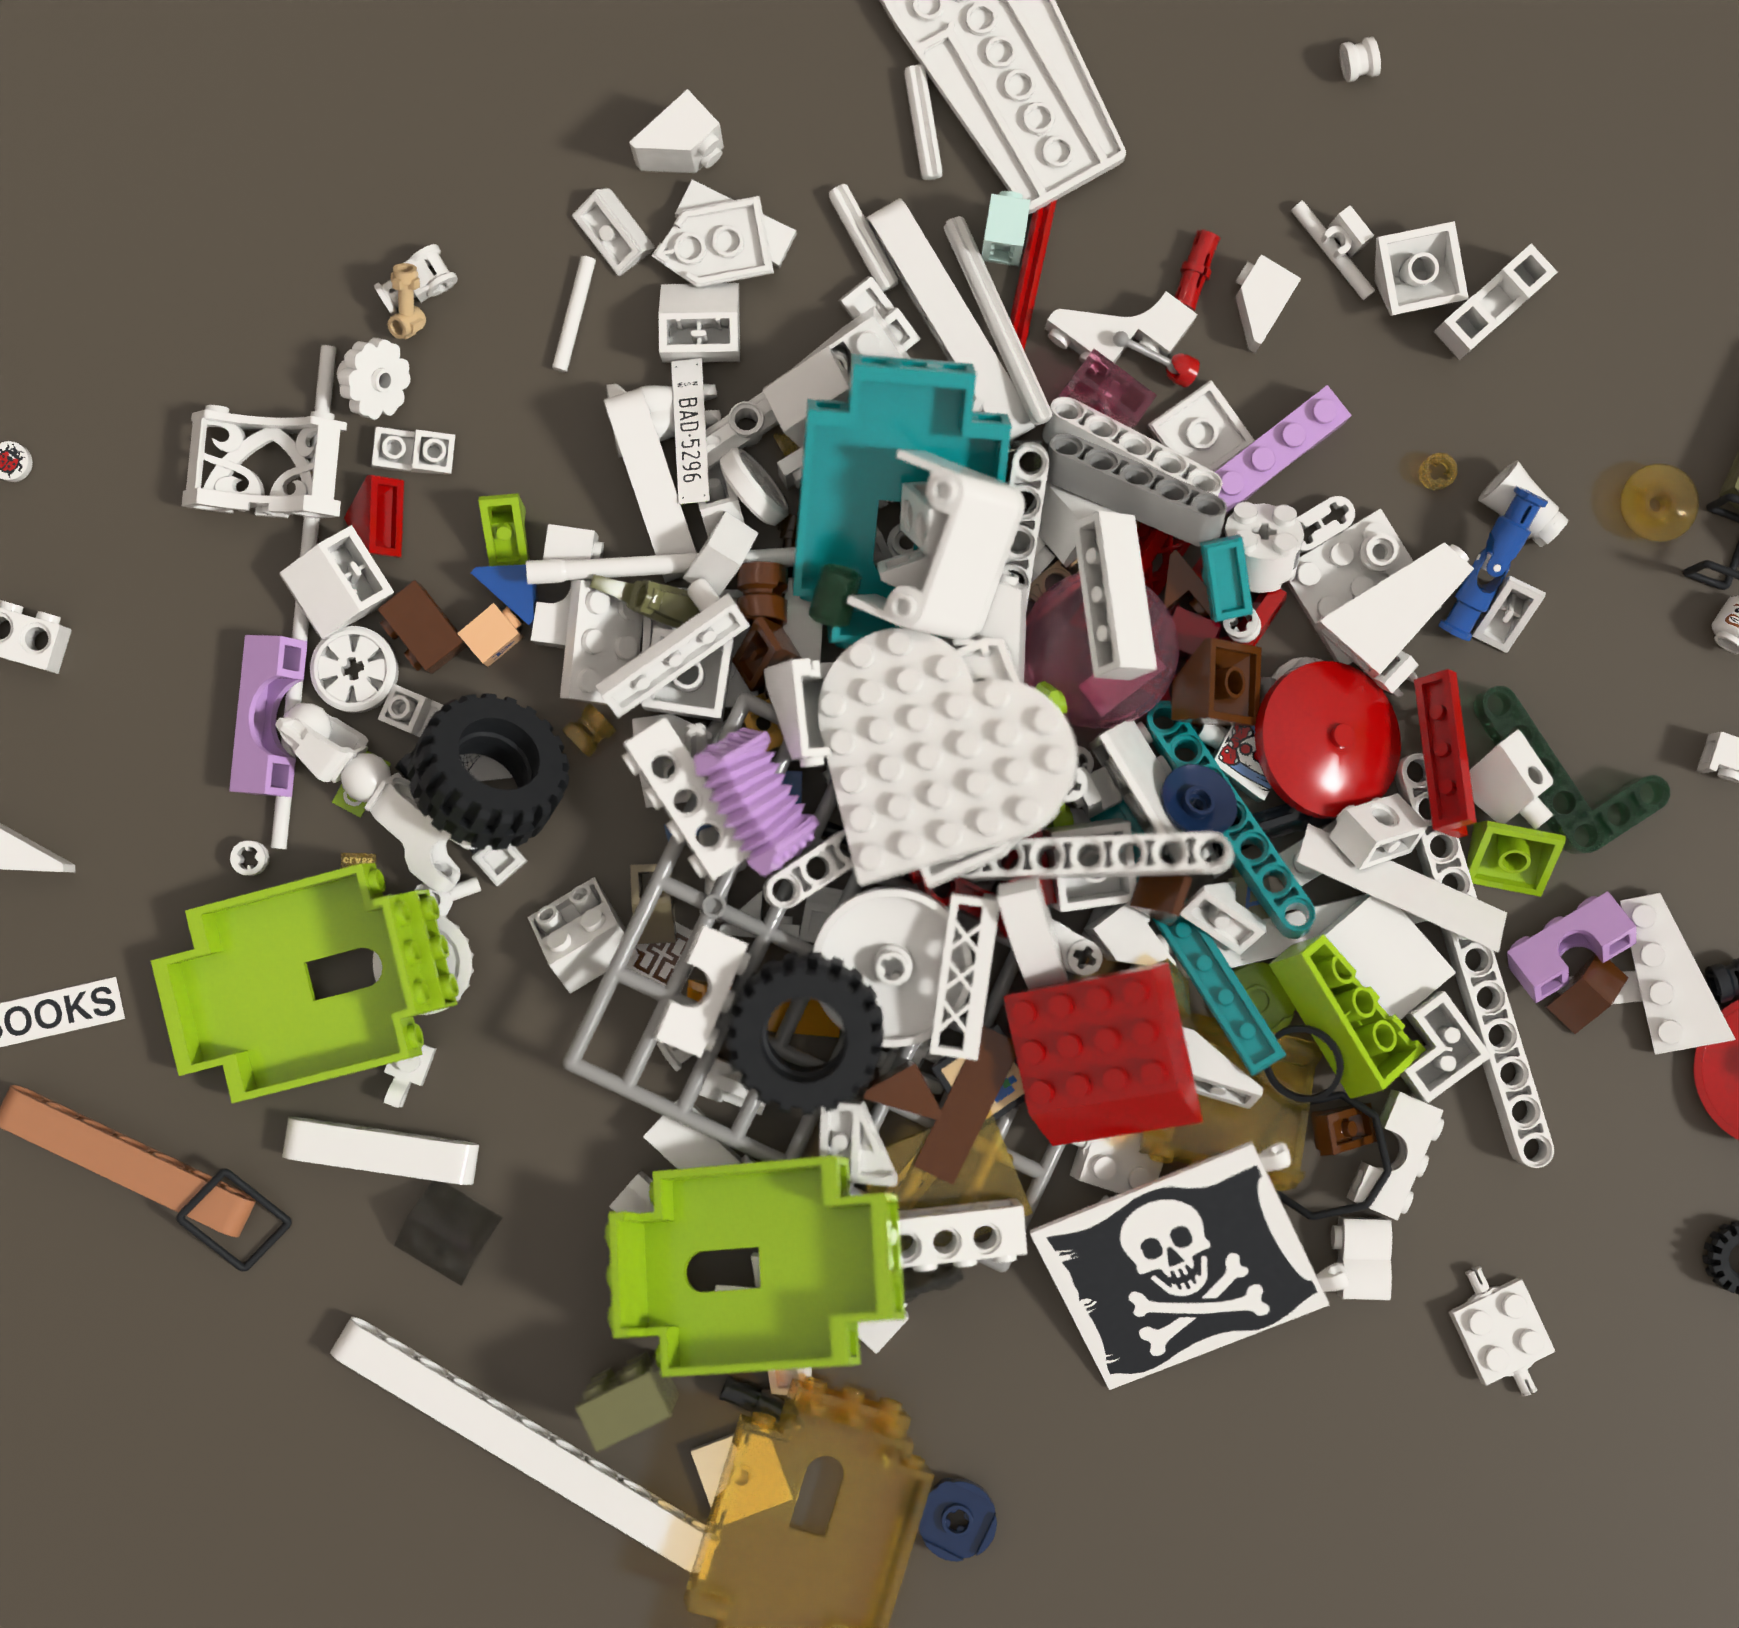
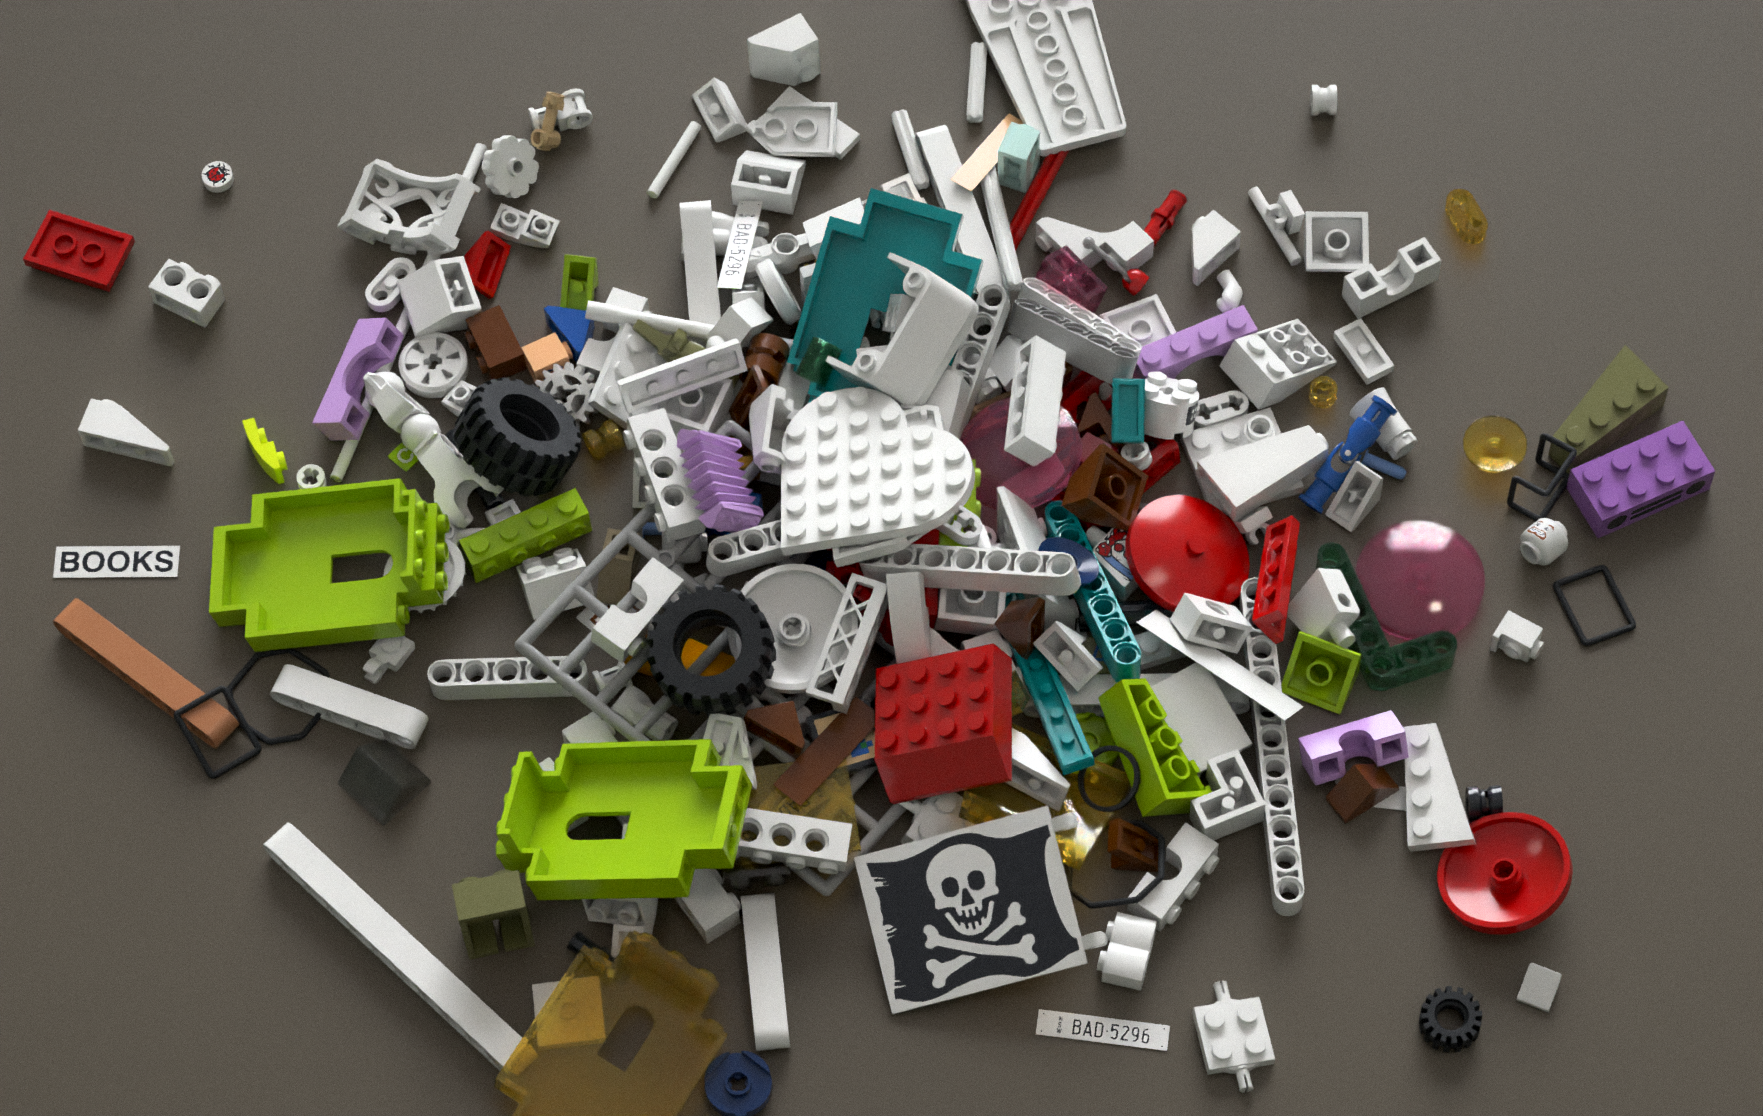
camera: 20 degrees right, 25 degrees down
(189, 843) = (264, 451): none -> neon yellow slope
(266, 569) = (386, 285): none -> white plate
(274, 1199) = (248, 666): none -> black piece
(528, 667) = (579, 393): none -> white gear
(529, 882) = (525, 535): none -> lime brick
(541, 1080) = (491, 684): none -> white beam
(955, 1381) = (765, 972): none -> white beam
(964, 226) = (984, 157): none -> light nougat sticker
(1302, 358) = (1232, 292): none -> white arm
(1350, 1352) = (1102, 1030): none -> white sticker
(1377, 445) = (1276, 362): none -> white slope
(1477, 406) = (1363, 351): none -> white plate
(1537, 558) = (1383, 466): none -> medium blue piece
(1570, 180) = (1471, 213): none -> clear yellow beam
(1603, 700) = (1421, 579): none -> clear pink dish

